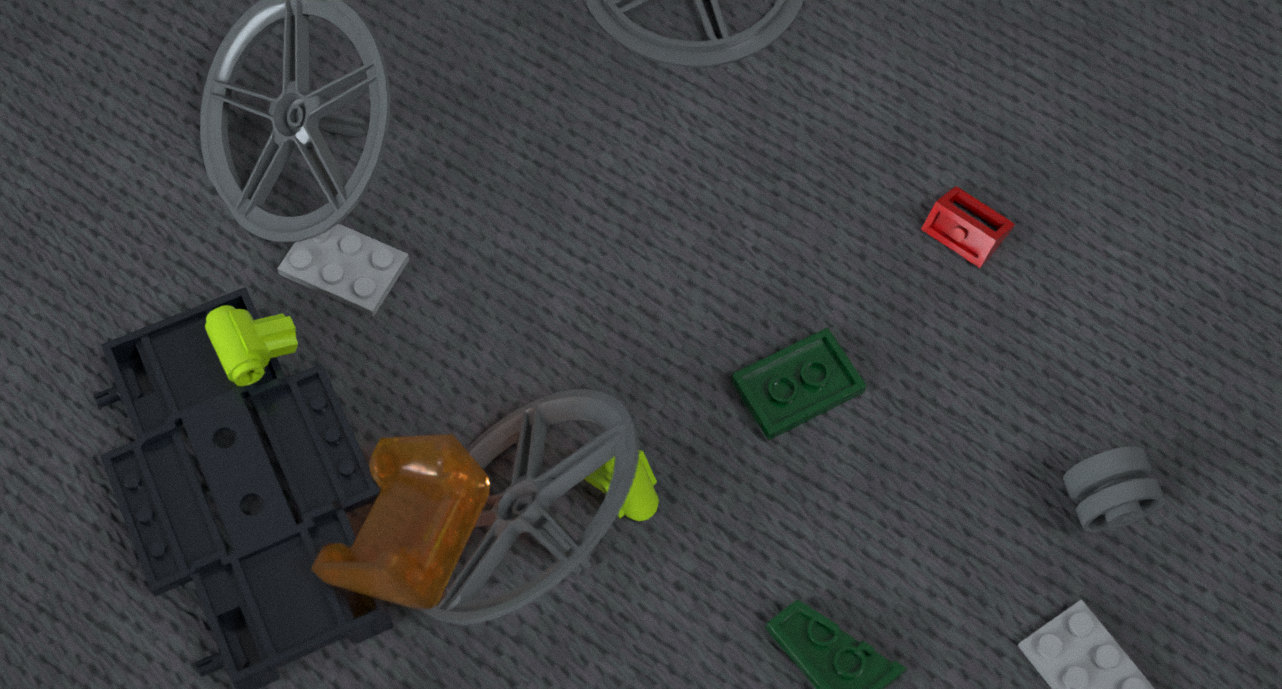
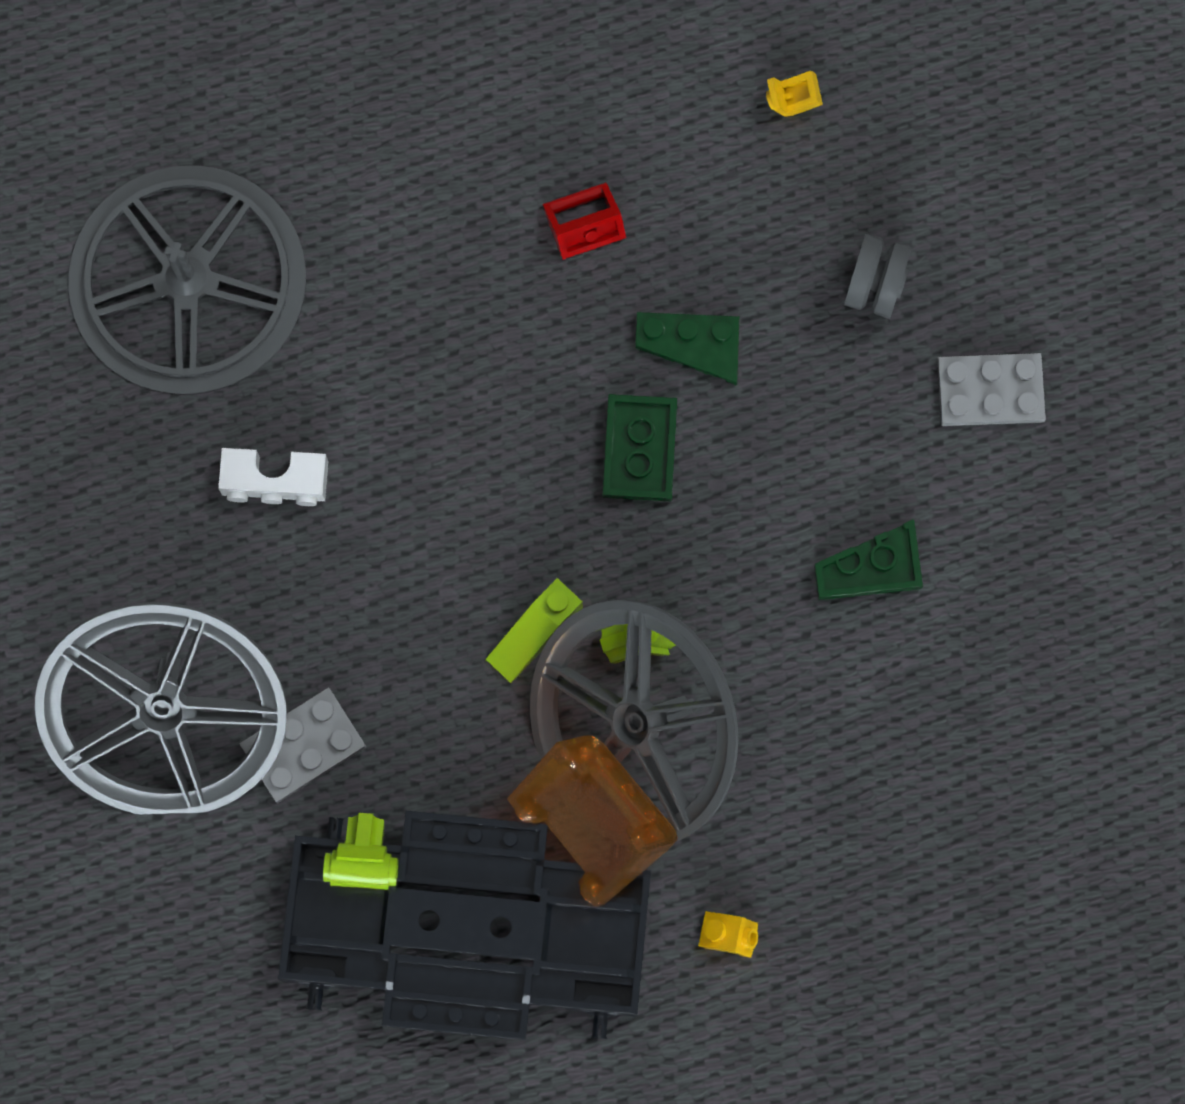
camera: 55 degrees left, 15 degrees up
(539, 381) = (533, 630): none -> lime slope
(578, 134) = (302, 481): none -> white arch
(930, 374) = (696, 341): none -> dark green wing
(1218, 328) = (794, 94): none -> yellow bracket

